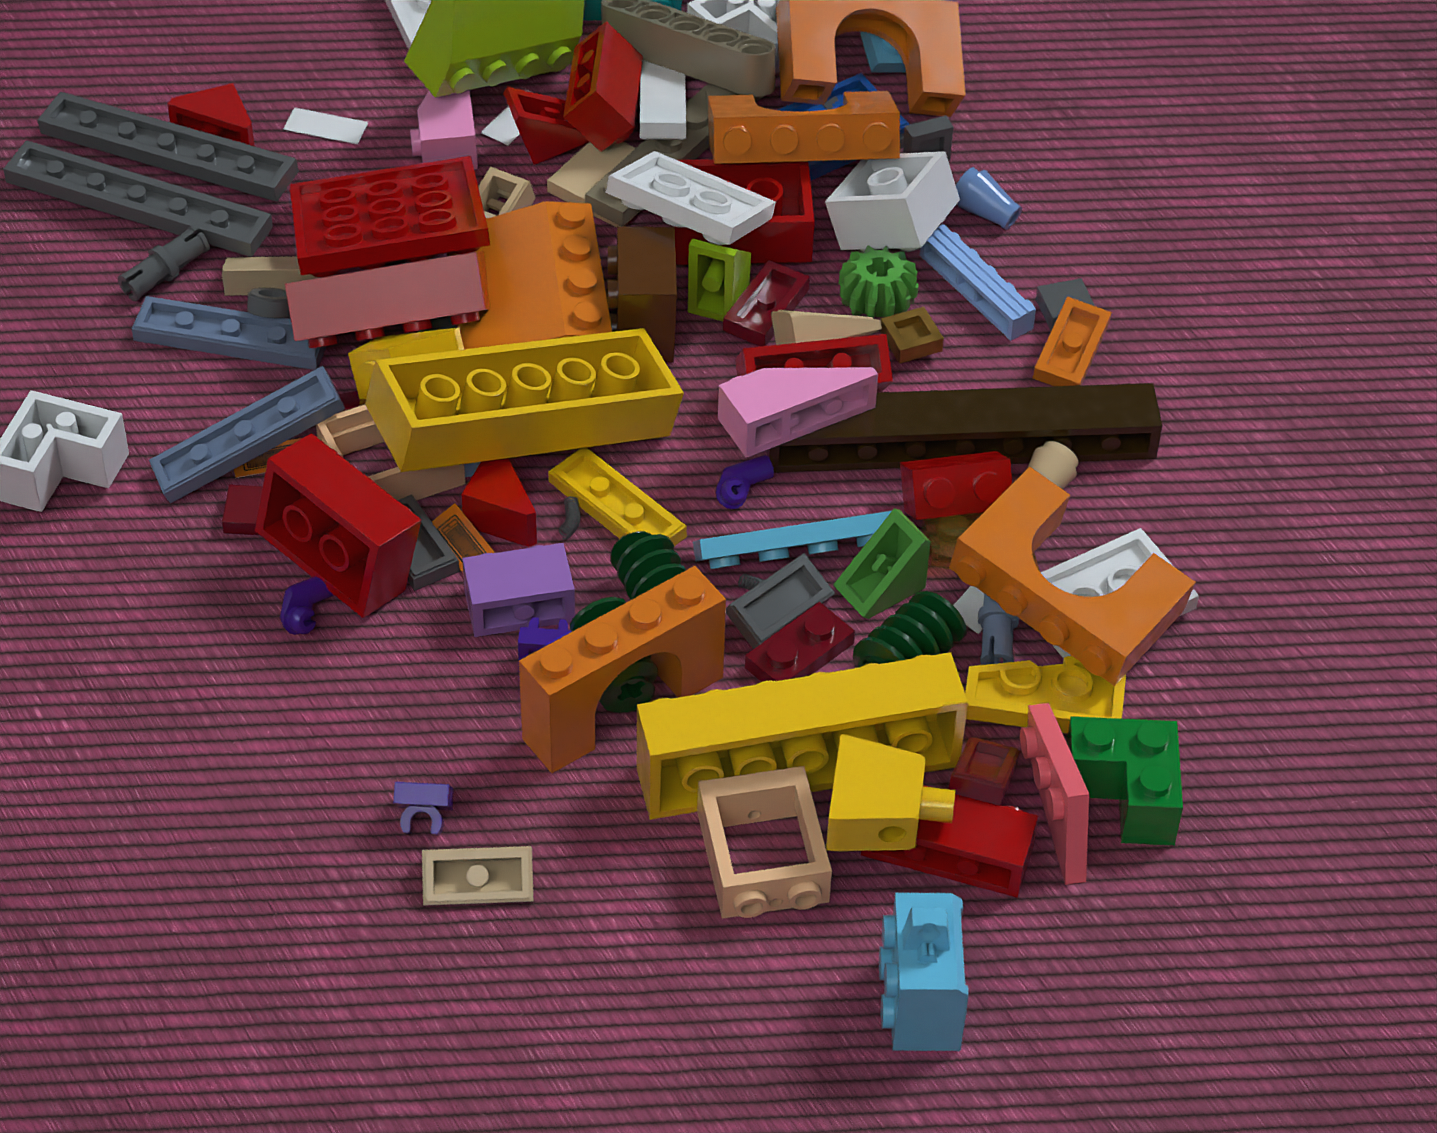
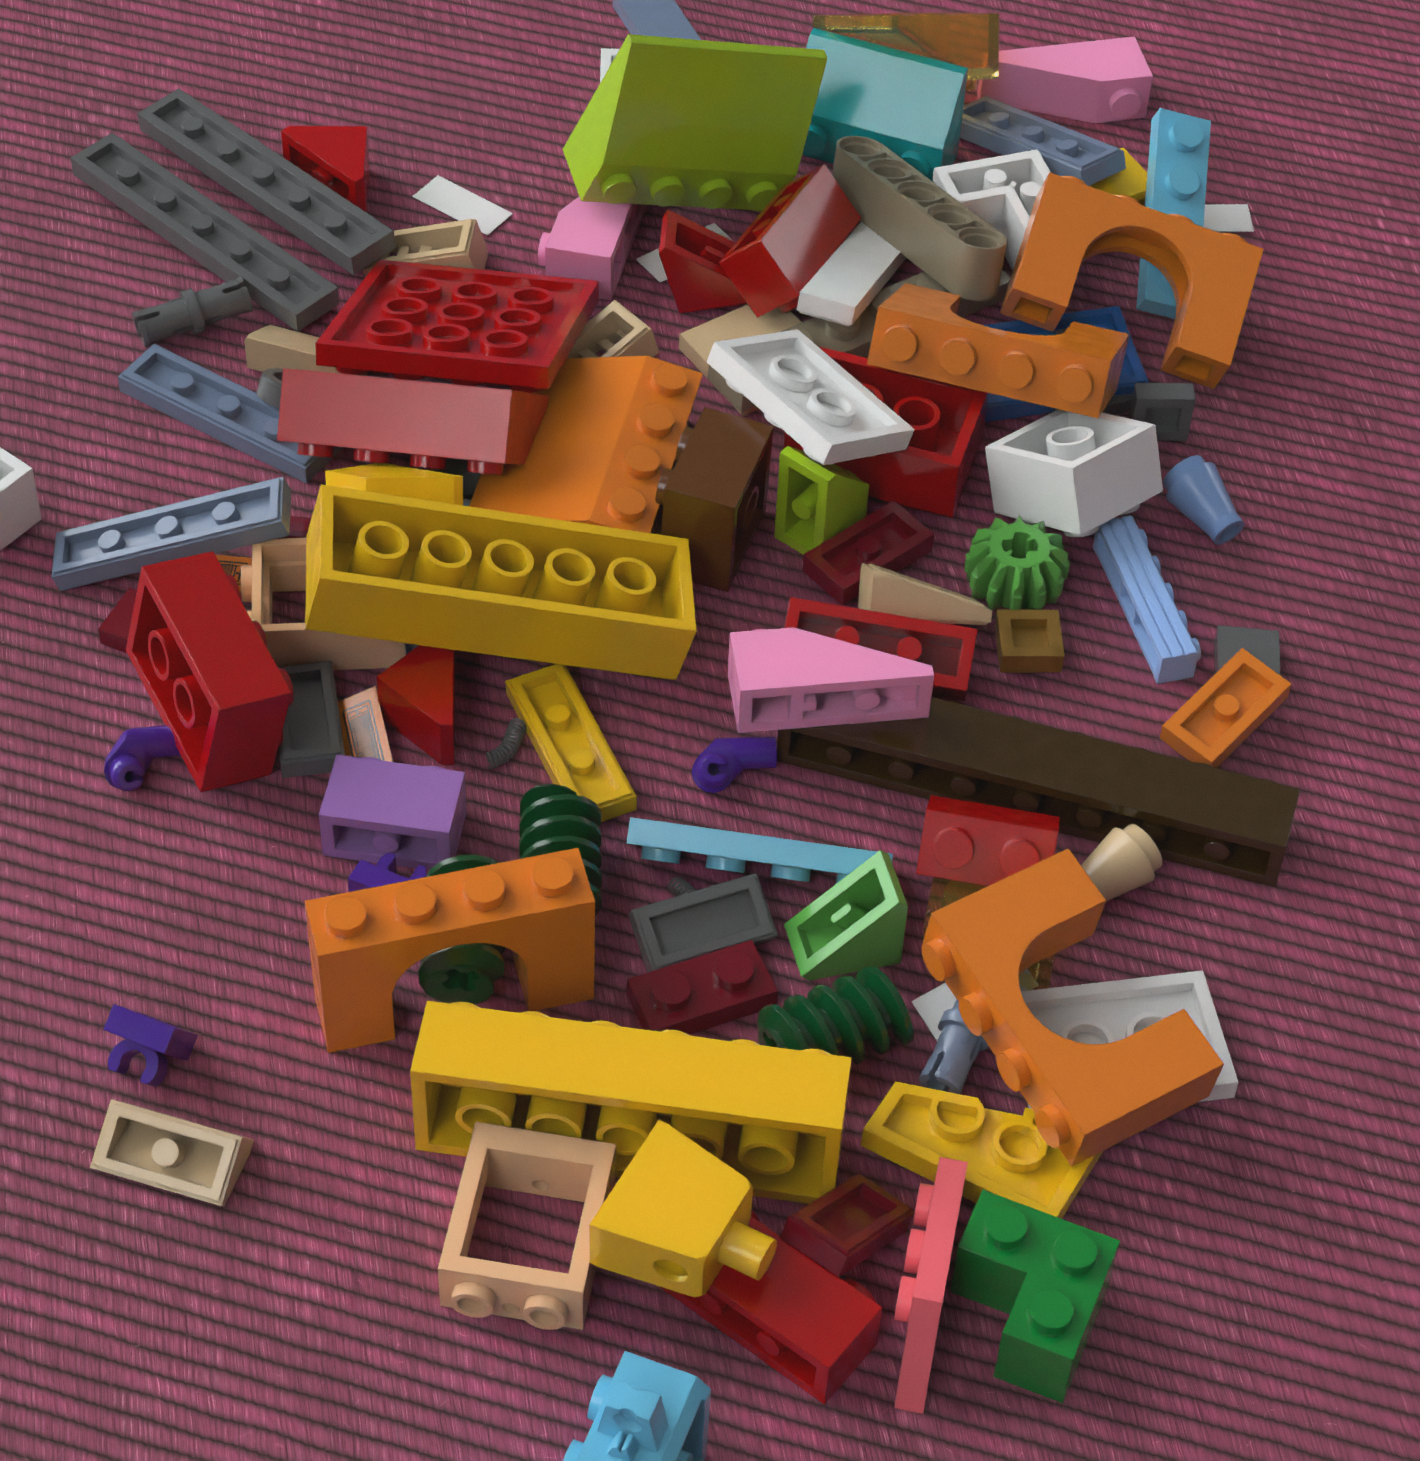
camera: 20 degrees right, 0 degrees up
(329, 160) = (440, 244): none -> tan slope

